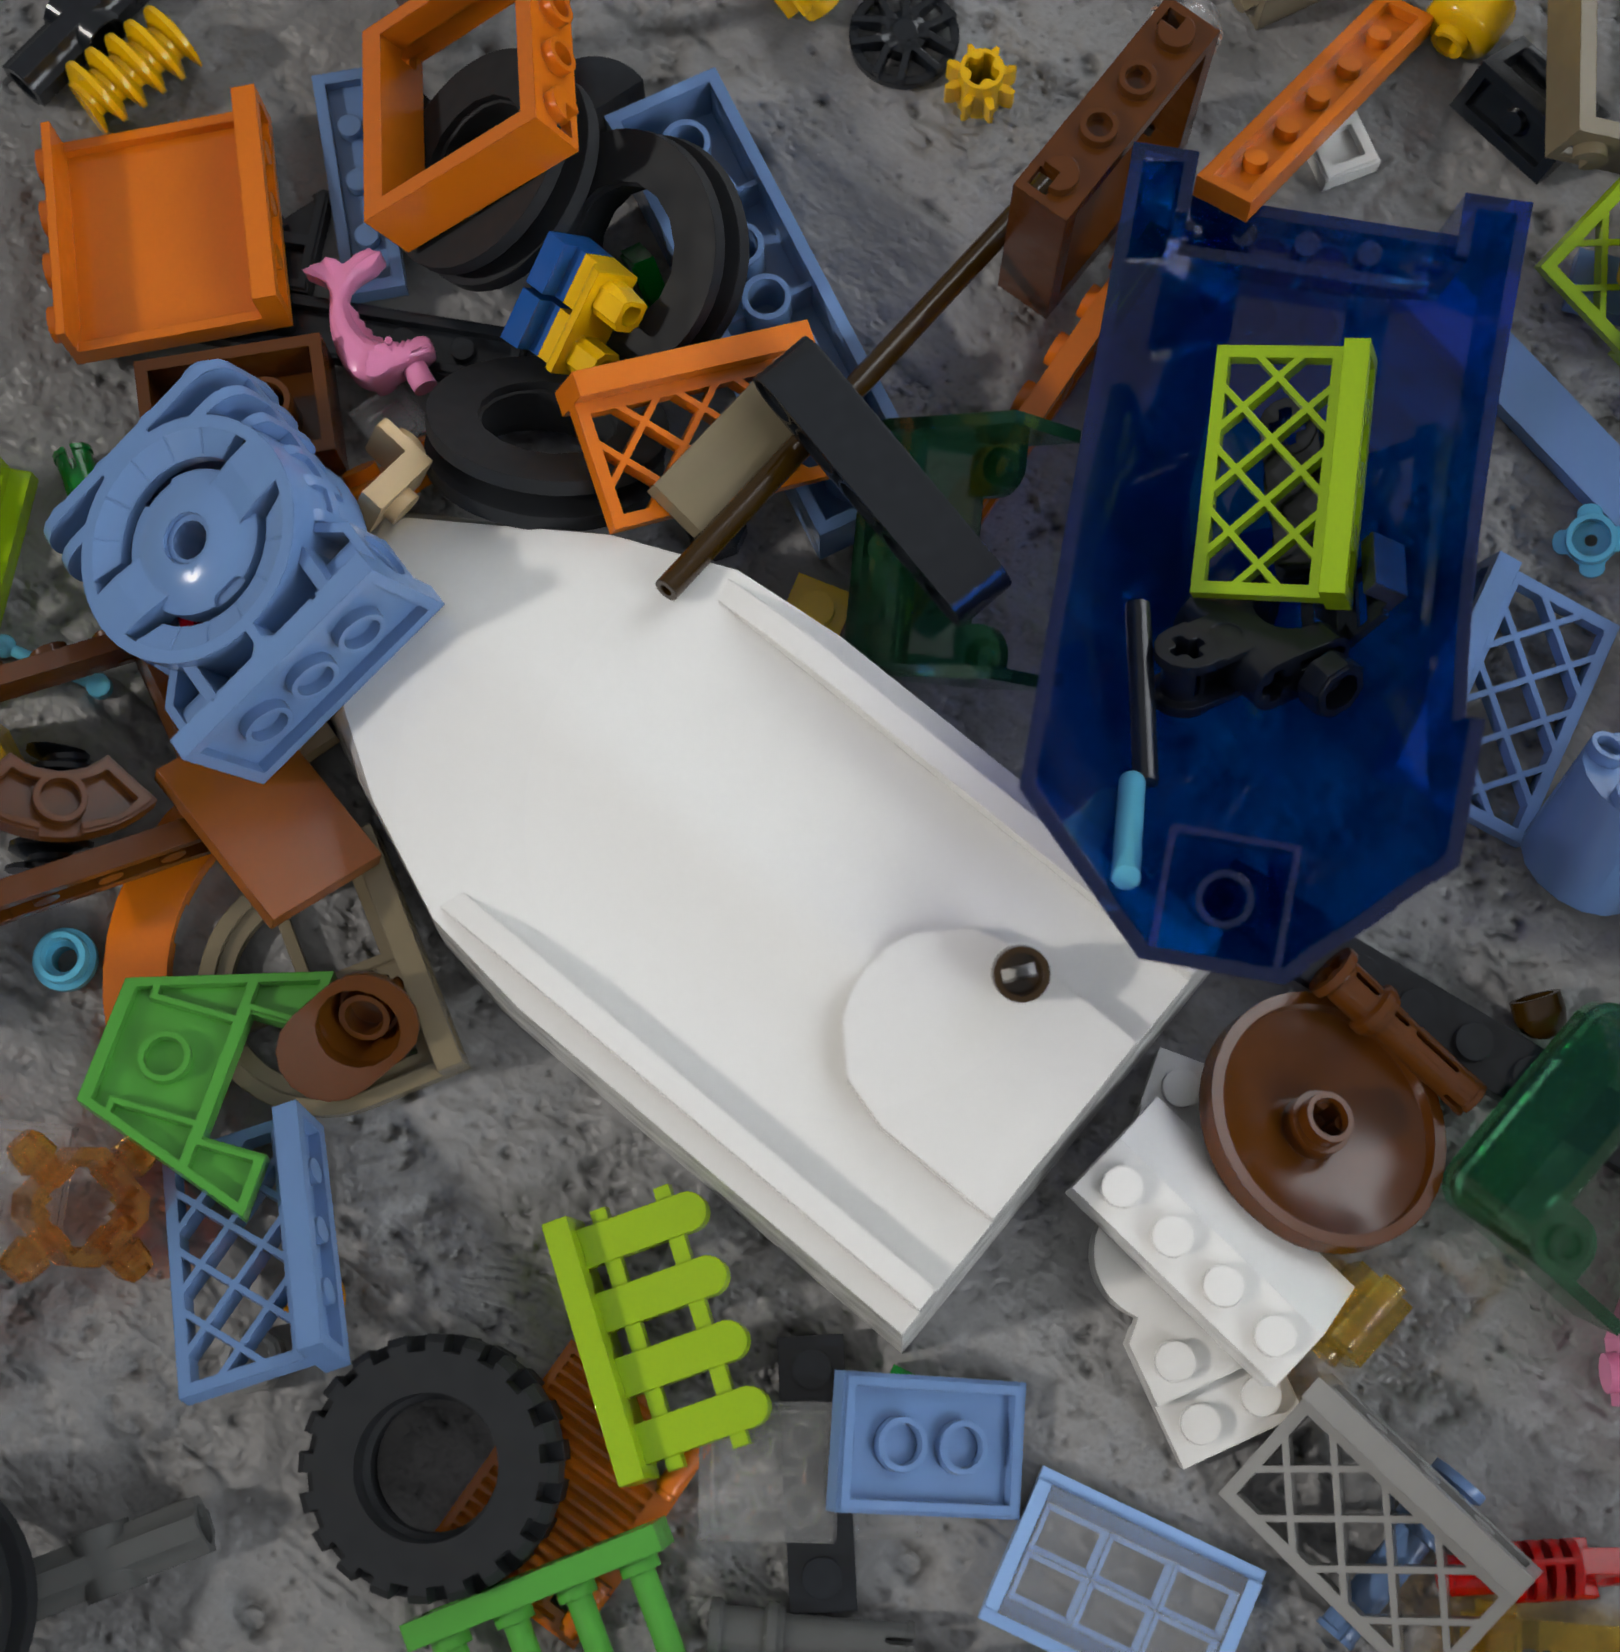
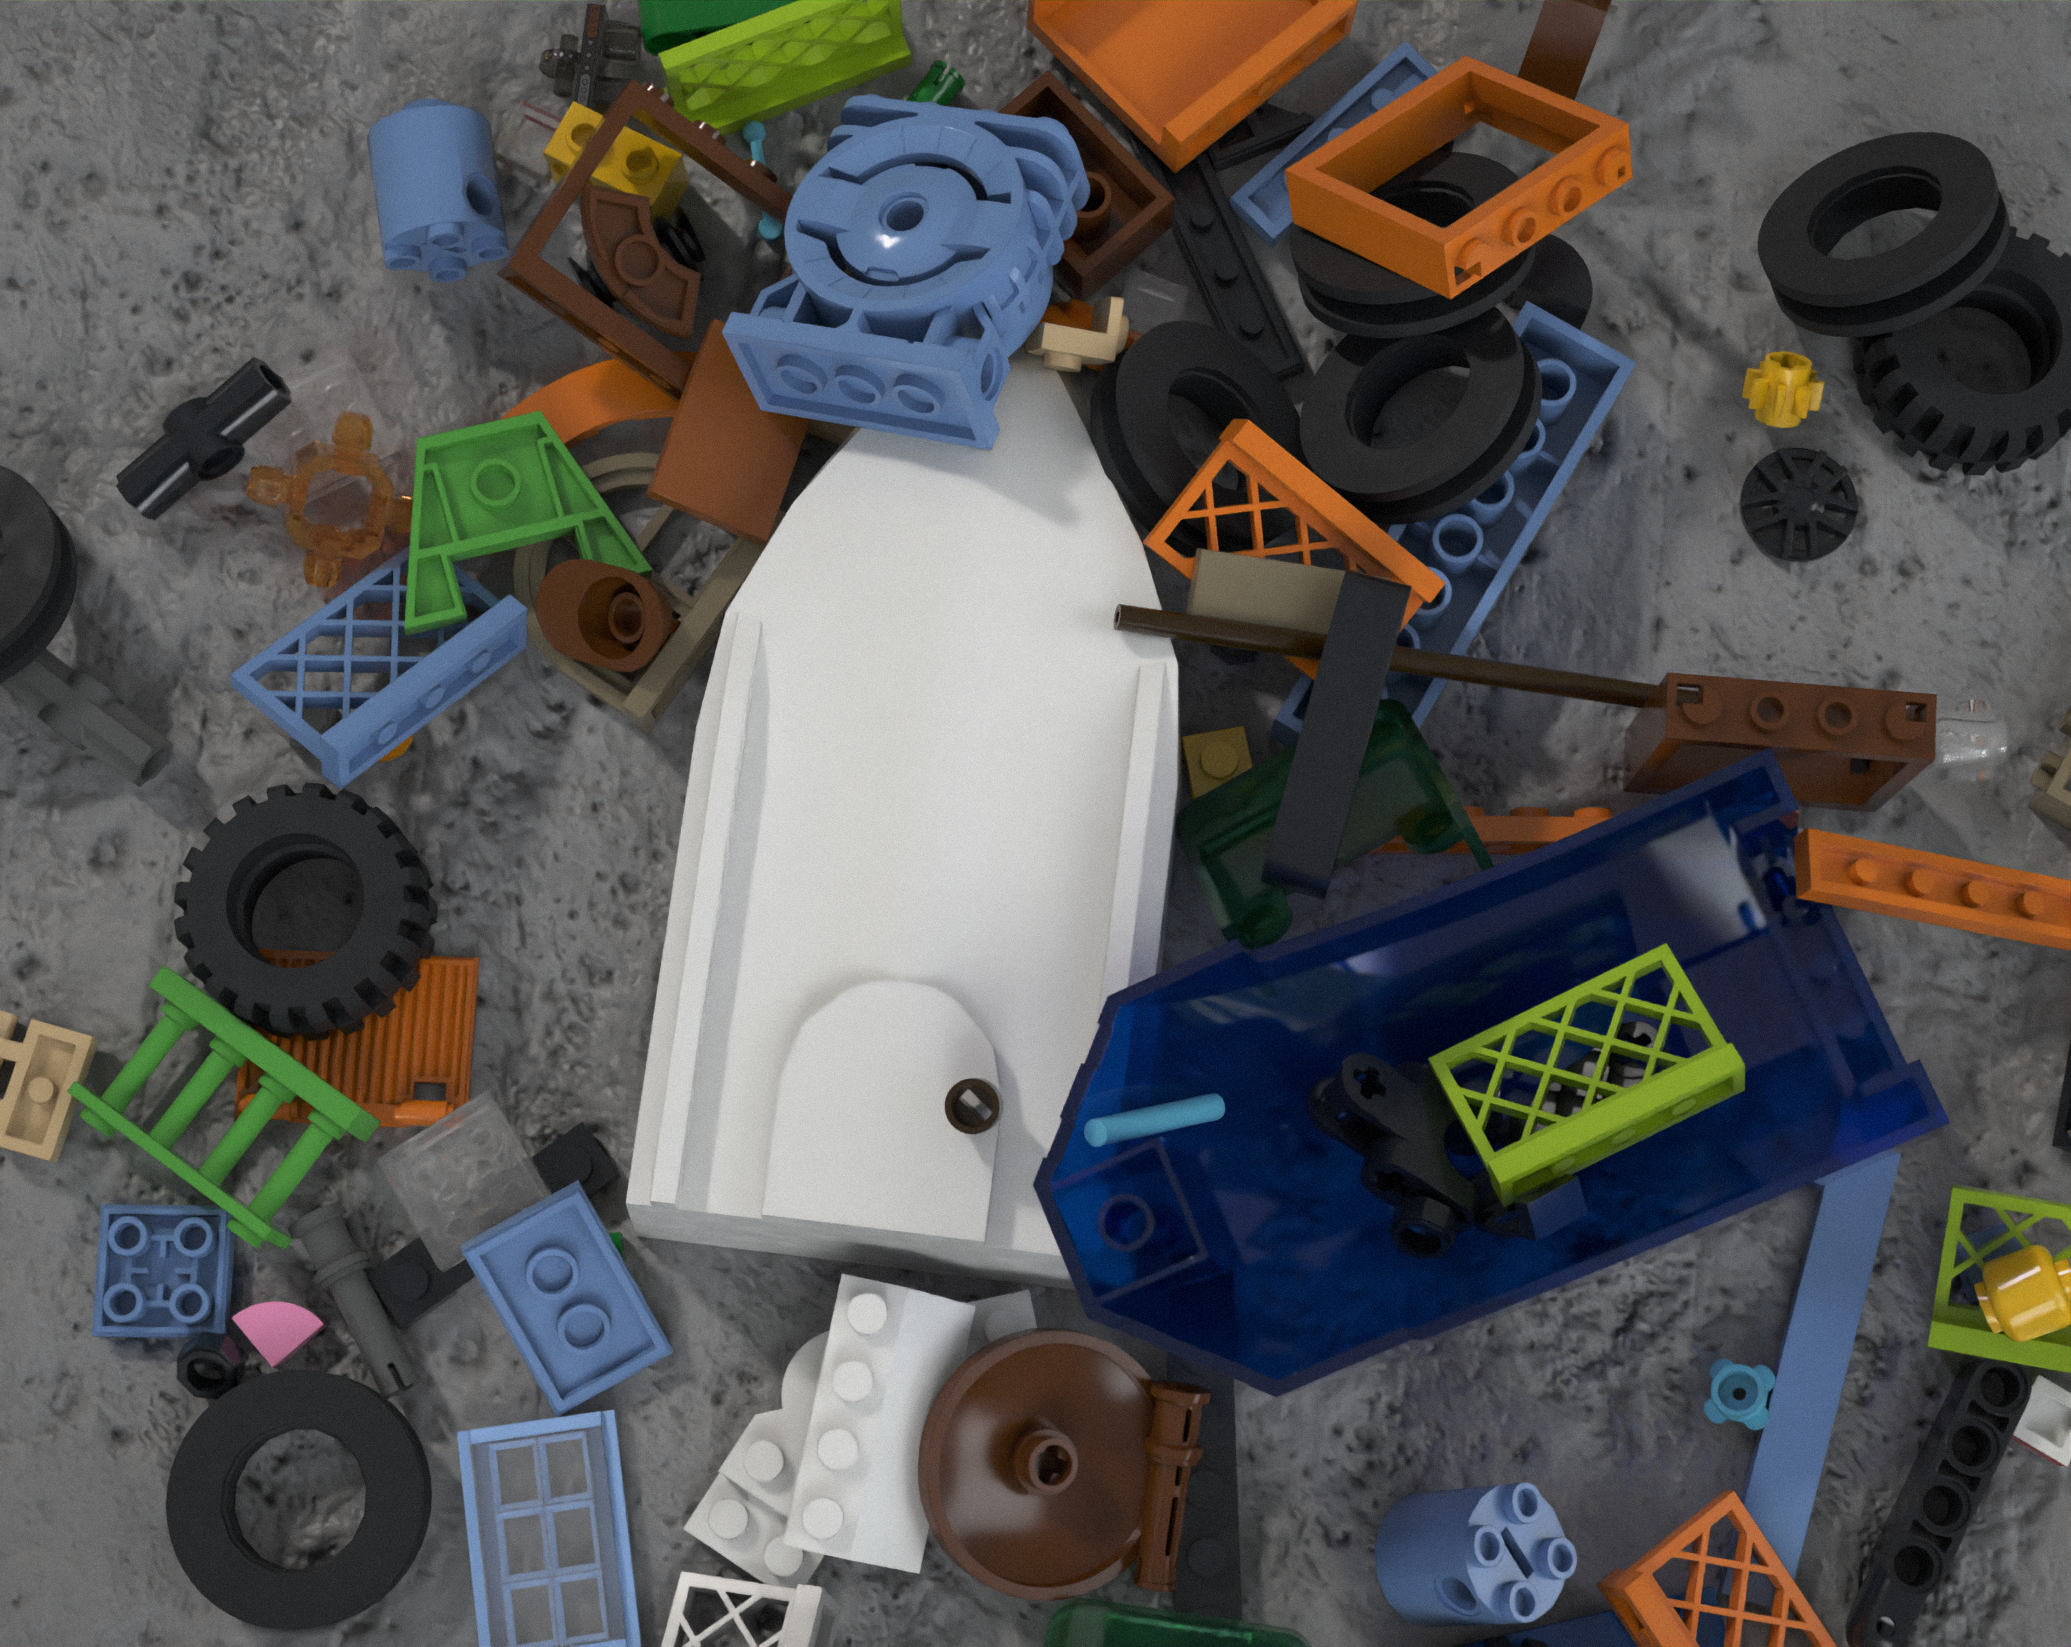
camera: 55 degrees right, 0 degrees up
(47, 955) = (524, 339): medium azure plate -> none
(369, 359) = (1185, 248): bright pink animal -> none
(574, 305) = (1334, 388): hips -> none
(620, 1378) = (509, 964): lime fence -> none
(643, 265) = (1422, 421): green tile -> none
(980, 83) = (1805, 583): yellow gear -> none
(1142, 690) = (1305, 1069): black bar -> none
(1344, 155) = (1958, 955): white tile -> none
(1364, 1319) = (899, 1597): clear yellow brick -> none
(1494, 588) = (1543, 1343): medium blue fence -> none
(1540, 1013) = (1272, 1602): dark brown hinge -> none

